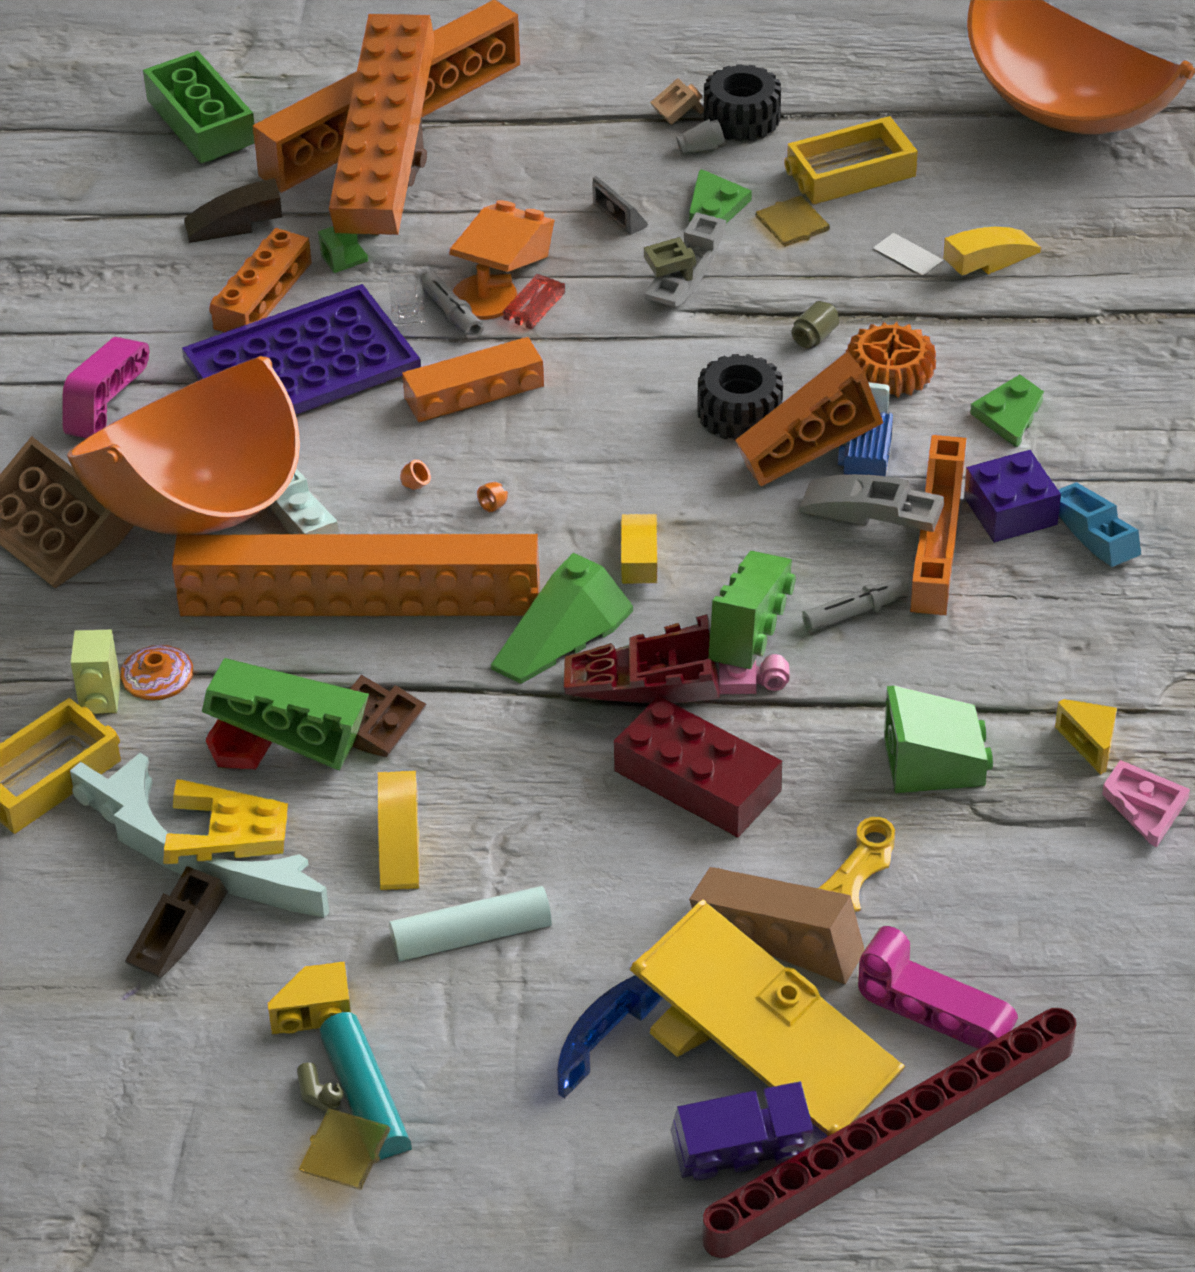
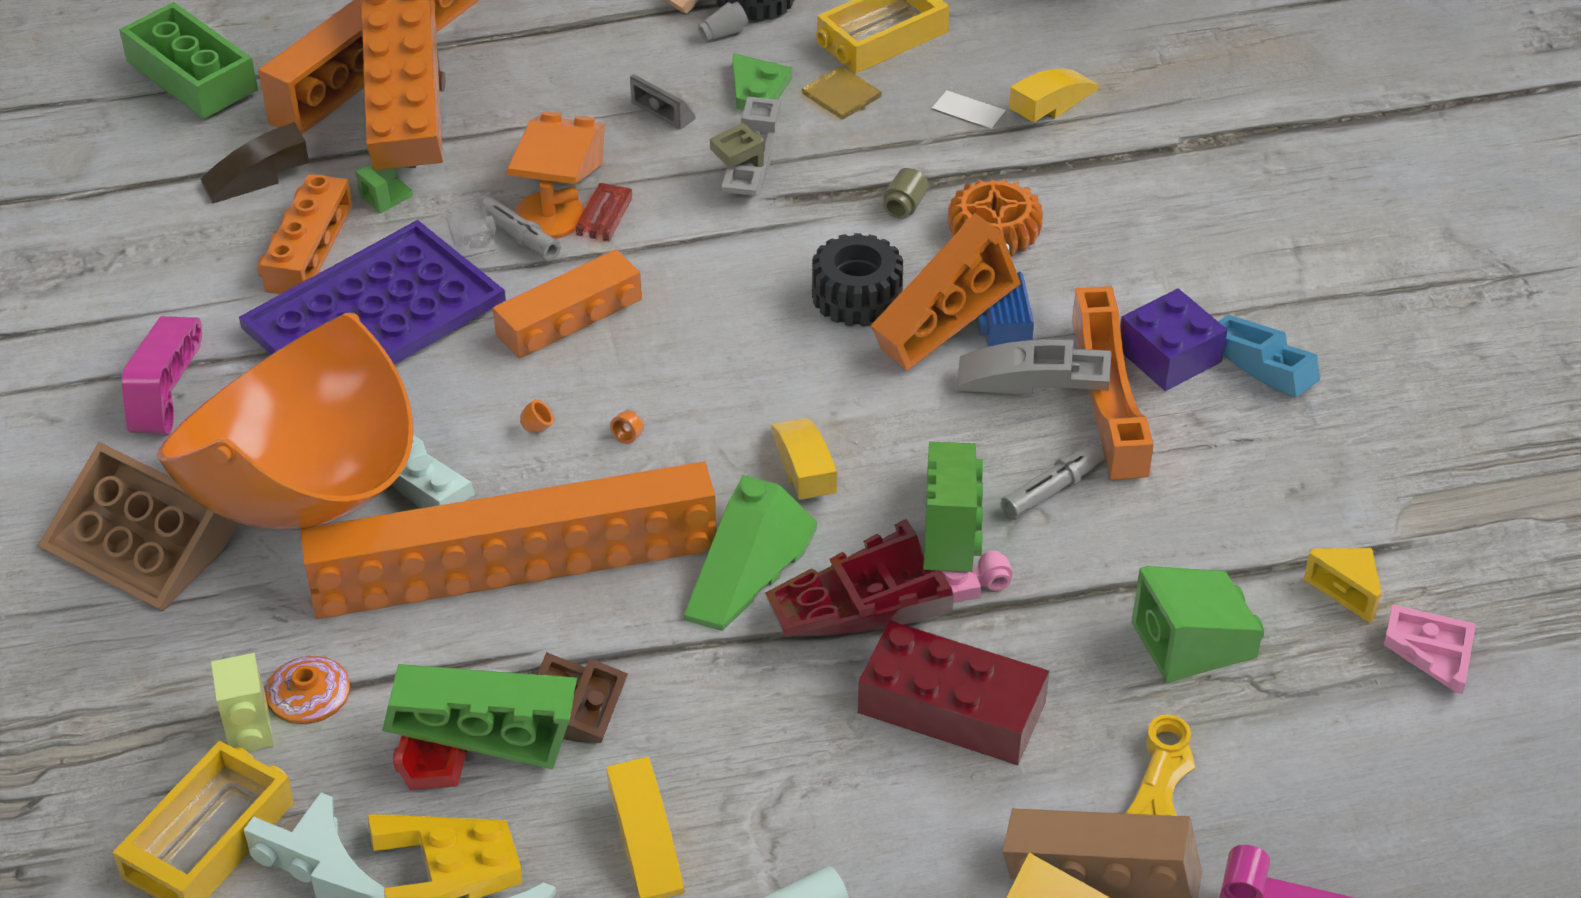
camera: 15 degrees left, 0 degrees up
(1009, 408) = (1129, 250): bright green wing -> none

